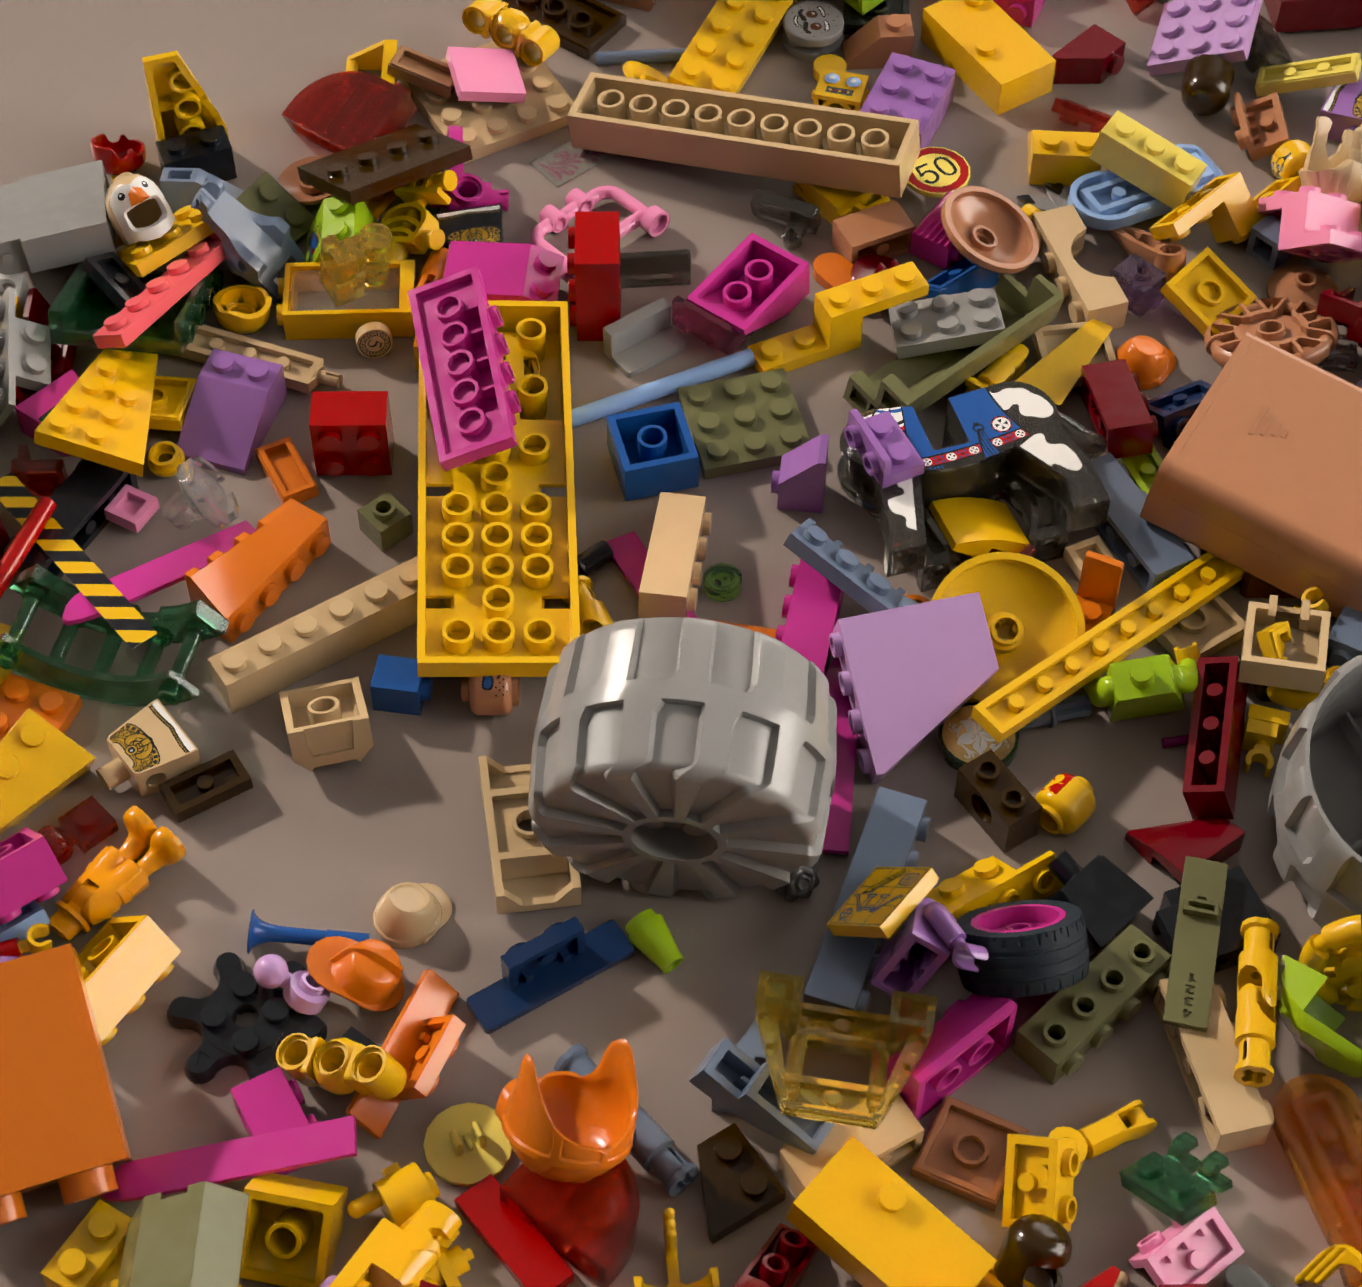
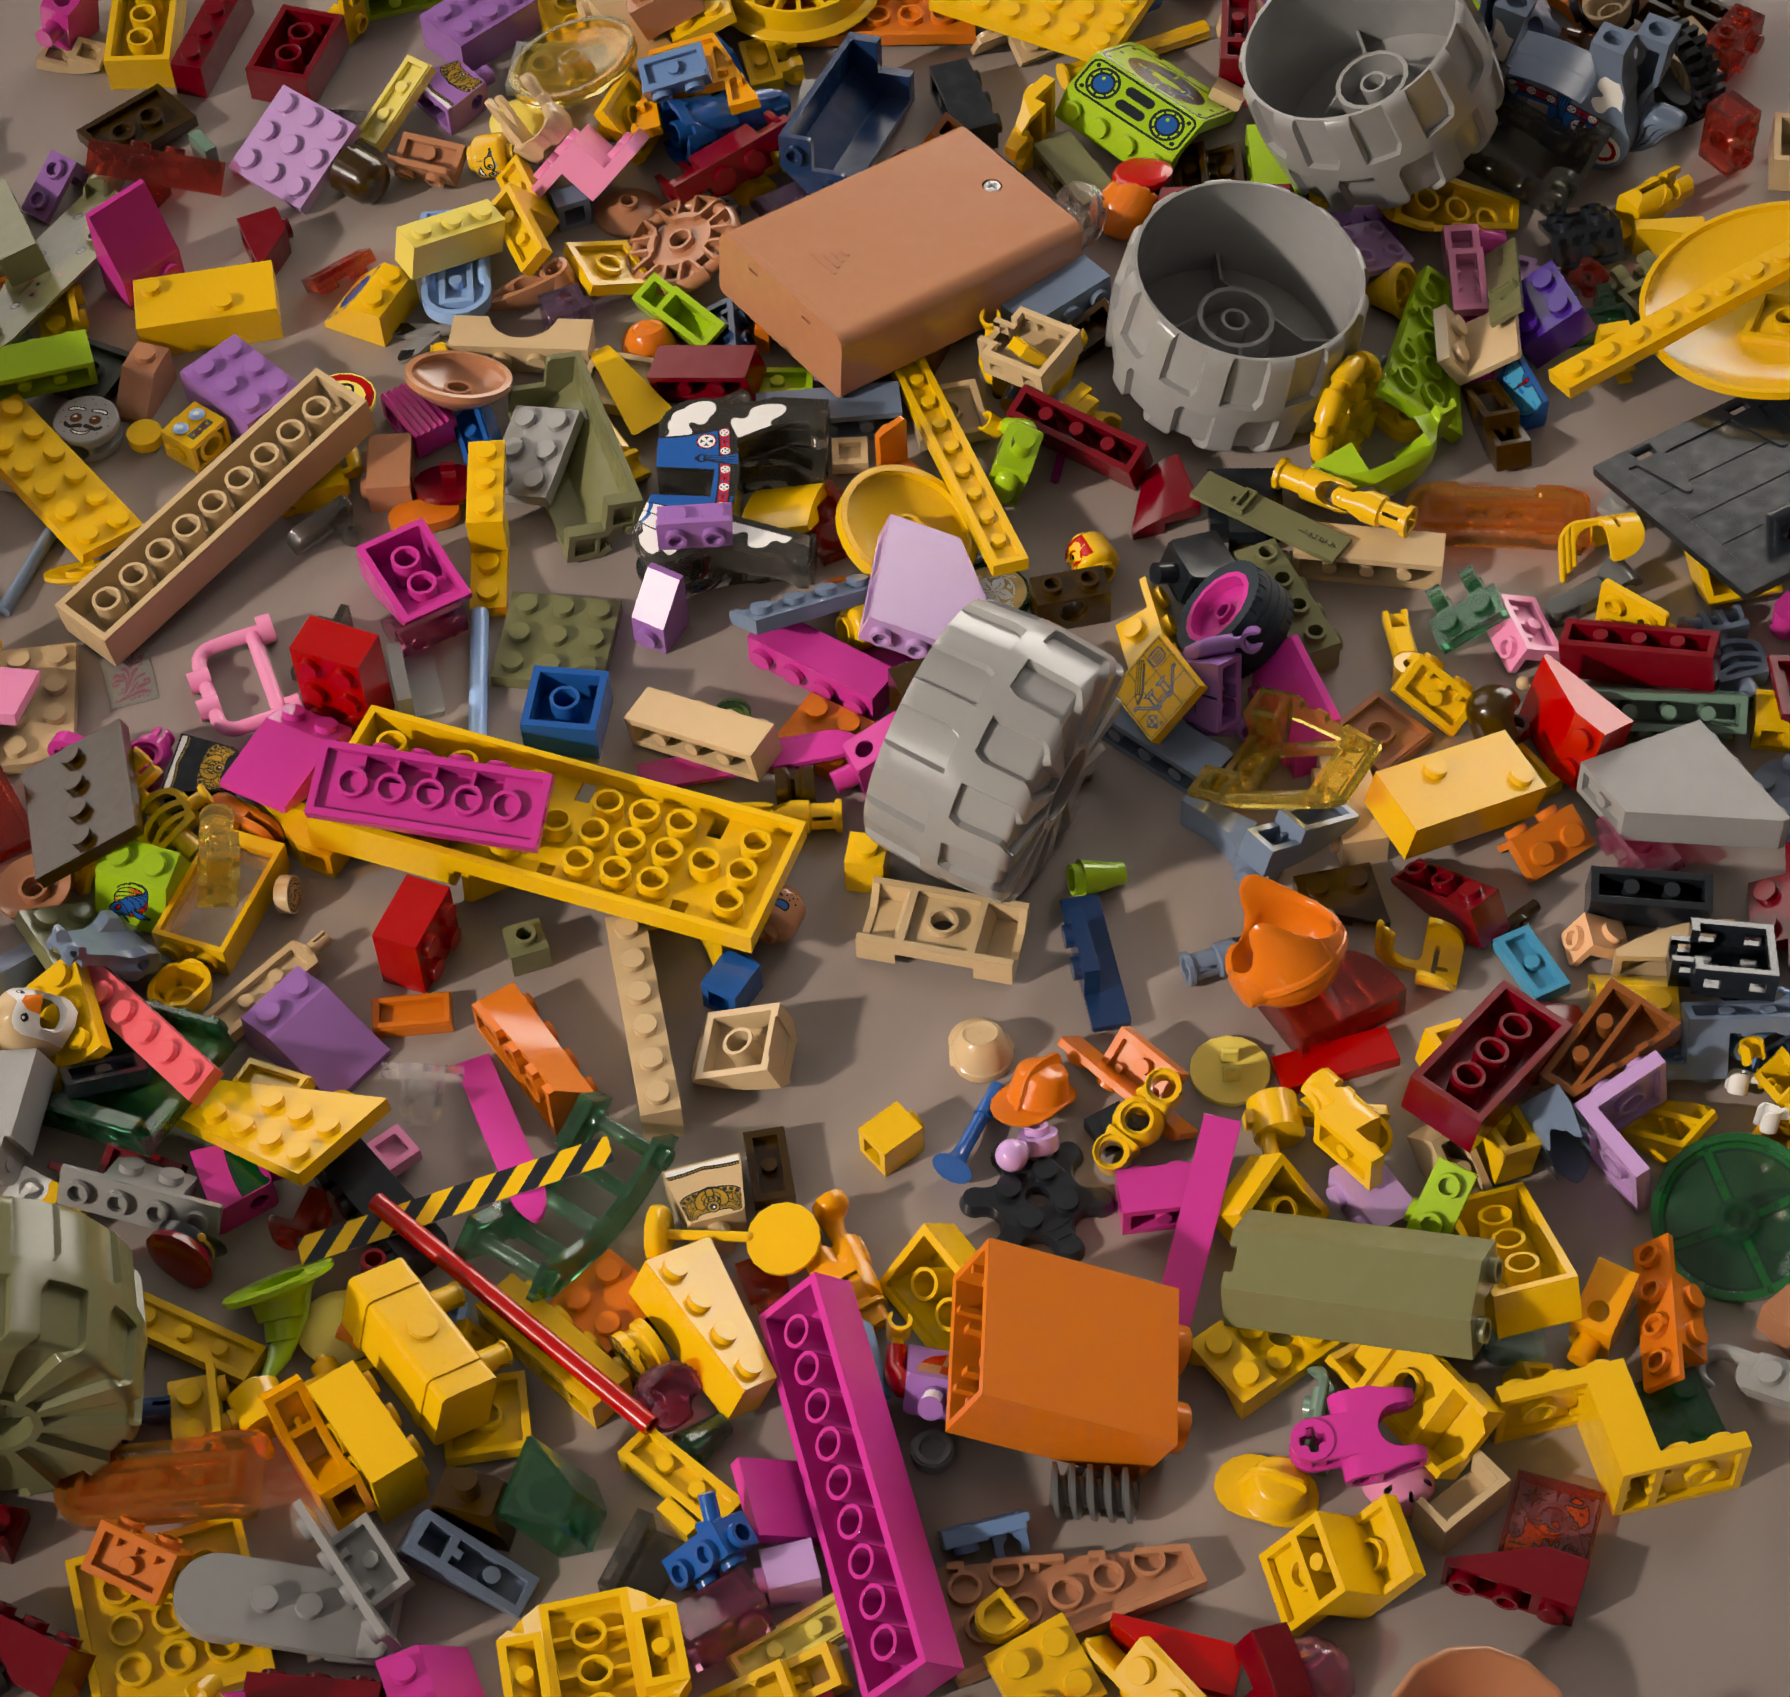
camera: 65 degrees left, 0 degrees up
(115, 809) = (778, 1239): none -> yellow piece
(269, 870) = (892, 1138): none -> yellow brick
(1183, 363) = (678, 311): none -> lime slope

